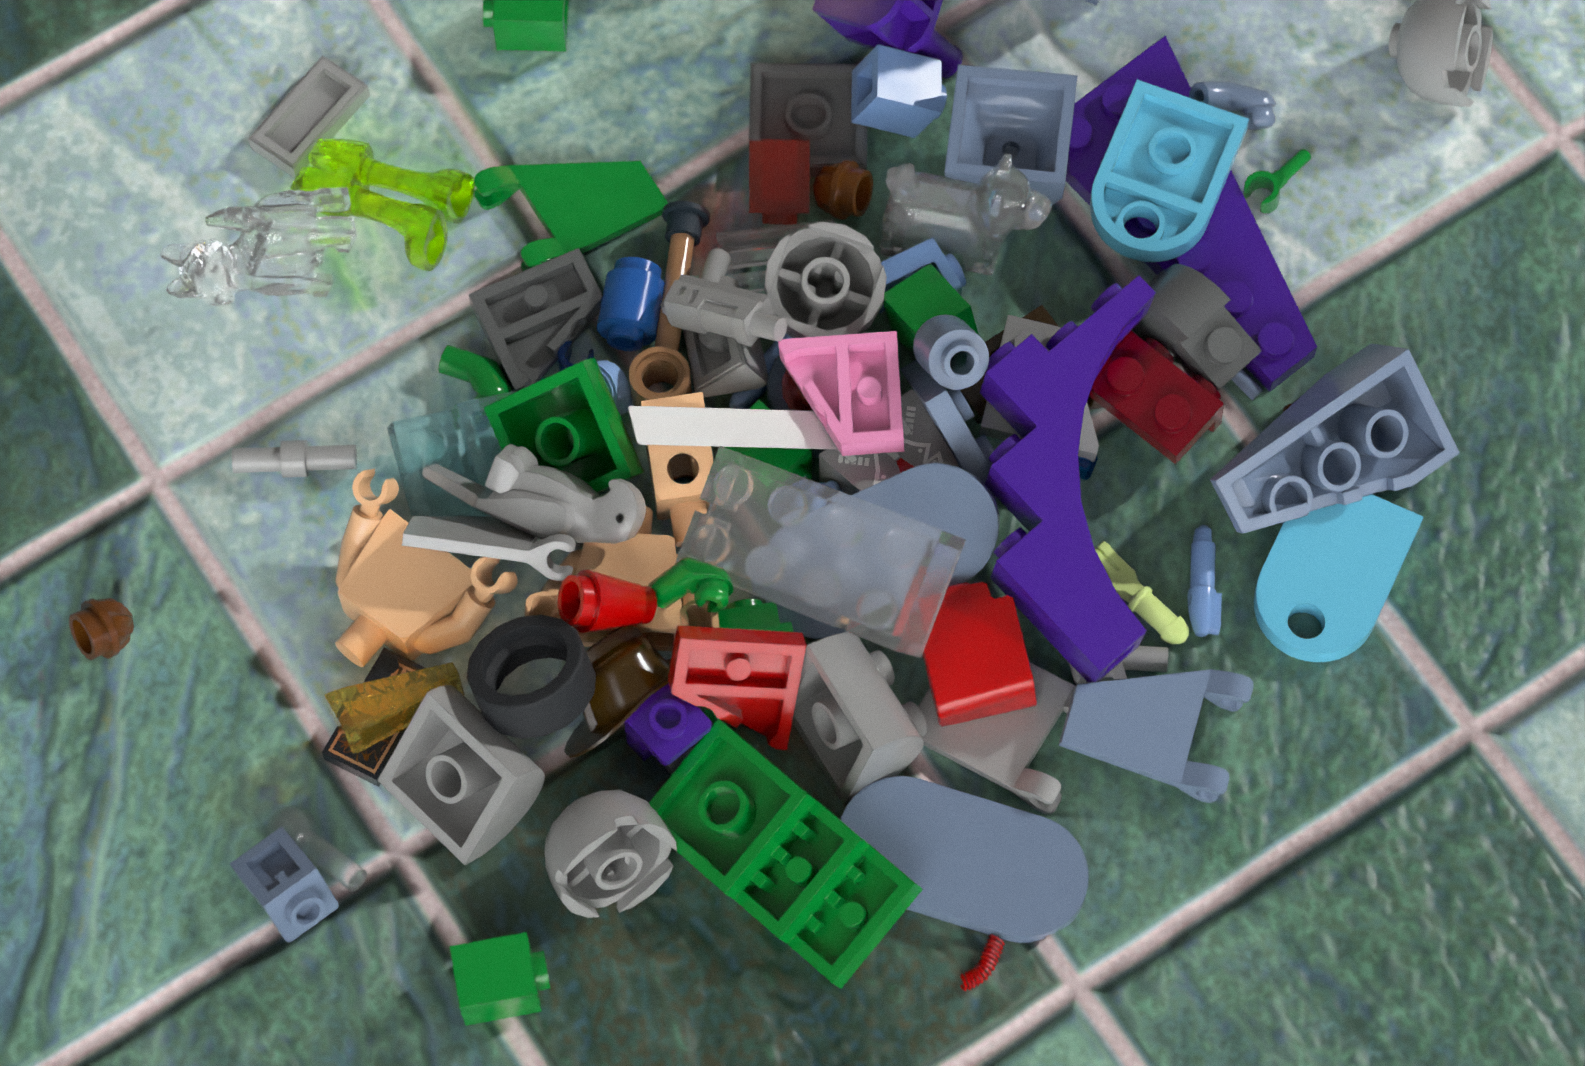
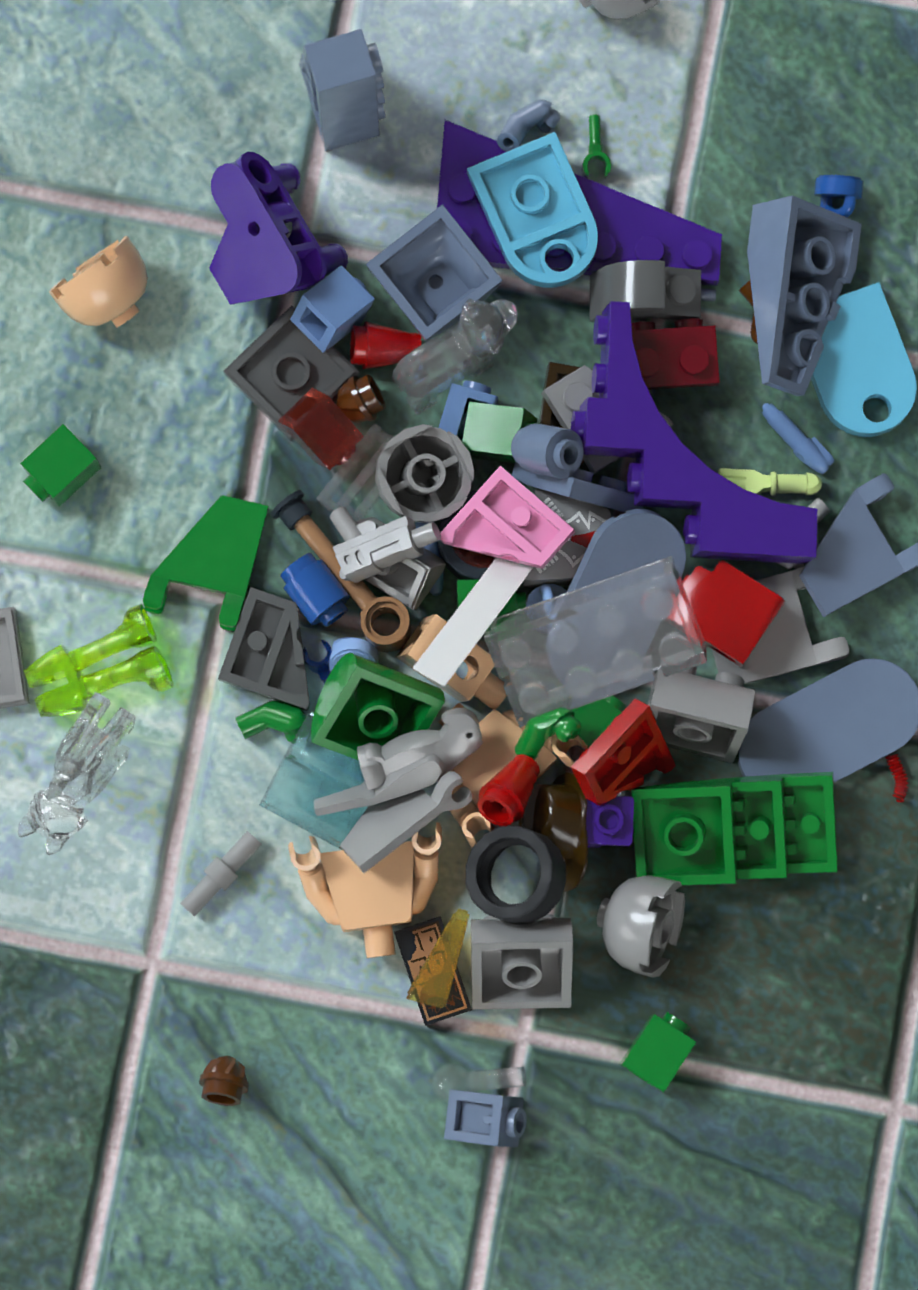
camera: 50 degrees left, 15 degrees up
(901, 147) = (380, 345): none -> red cone
(1469, 402) = (839, 187): none -> blue tile

